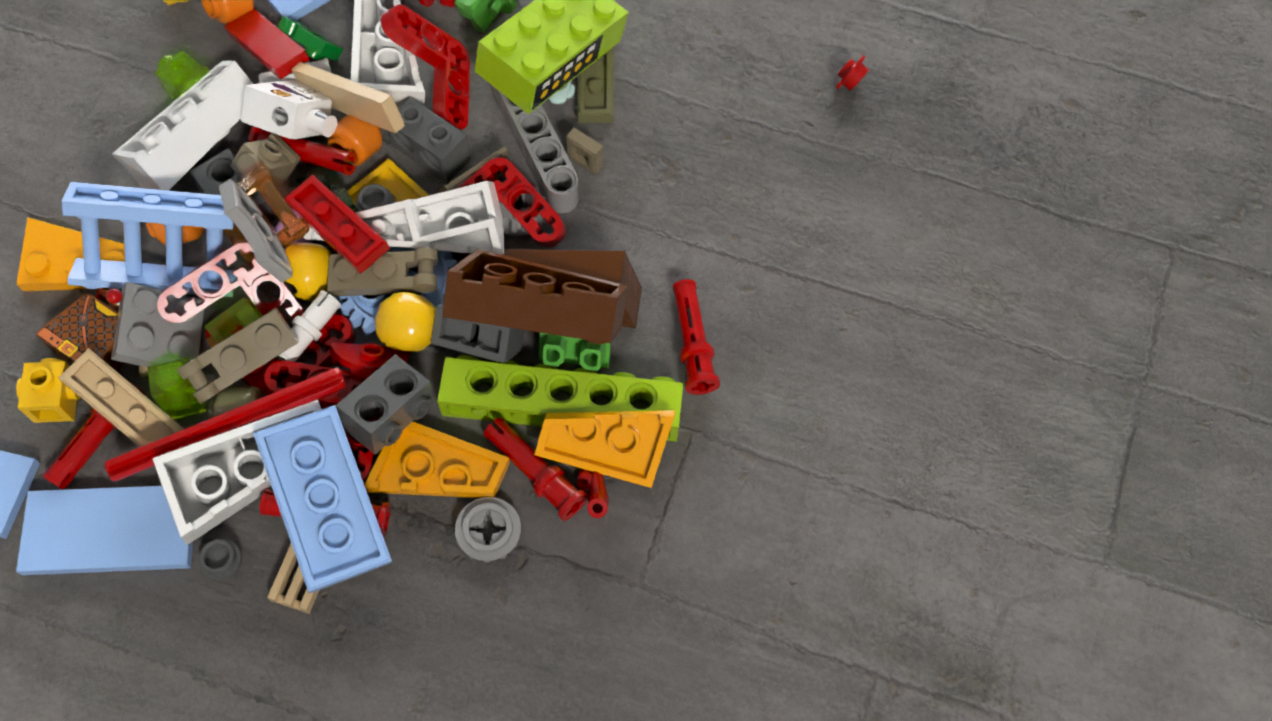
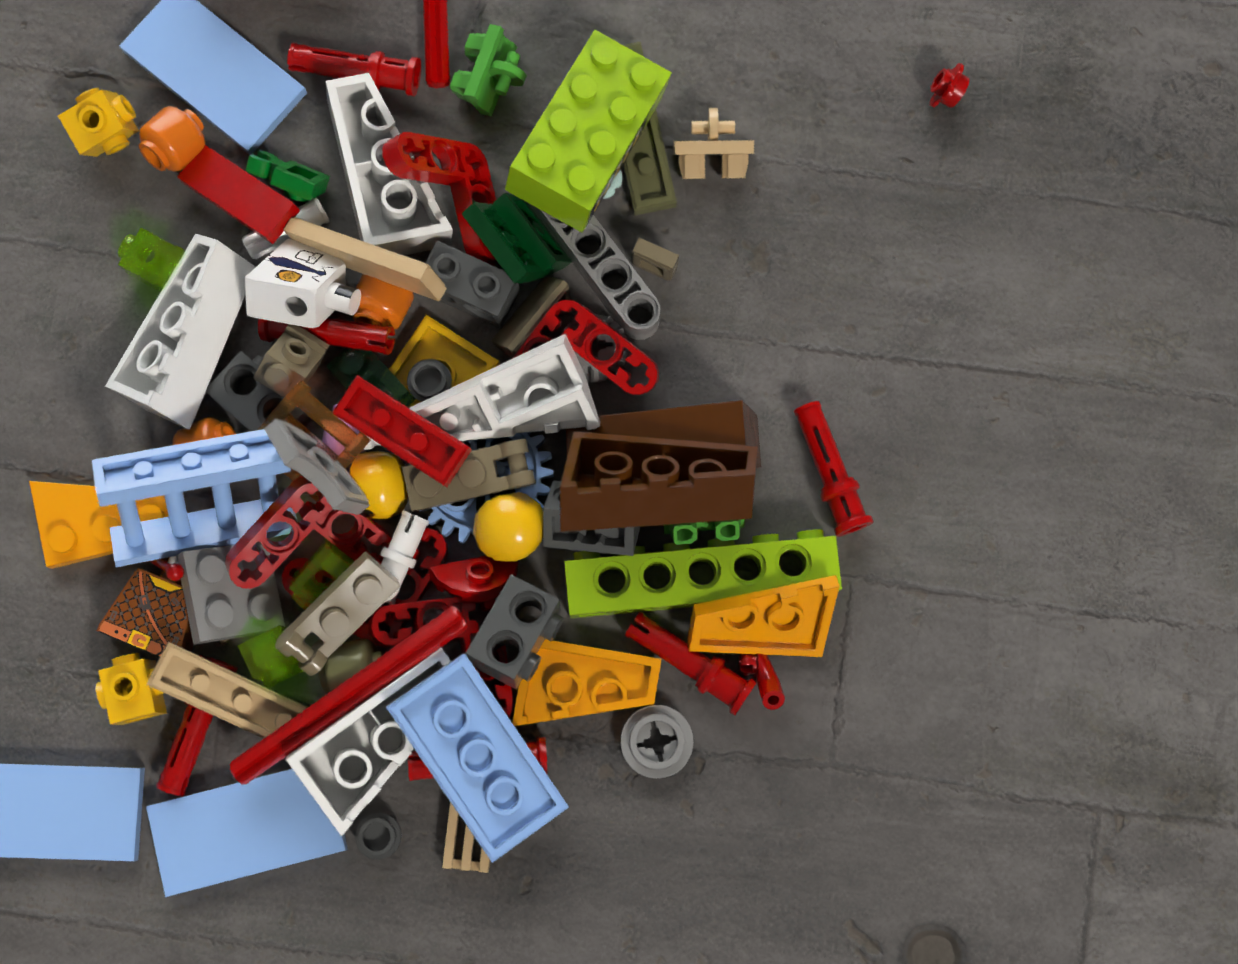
camera: 10 degrees left, 15 degrees up
(475, 111) = (516, 238): none -> dark green slope
(651, 76) = (733, 152): none -> tan hips

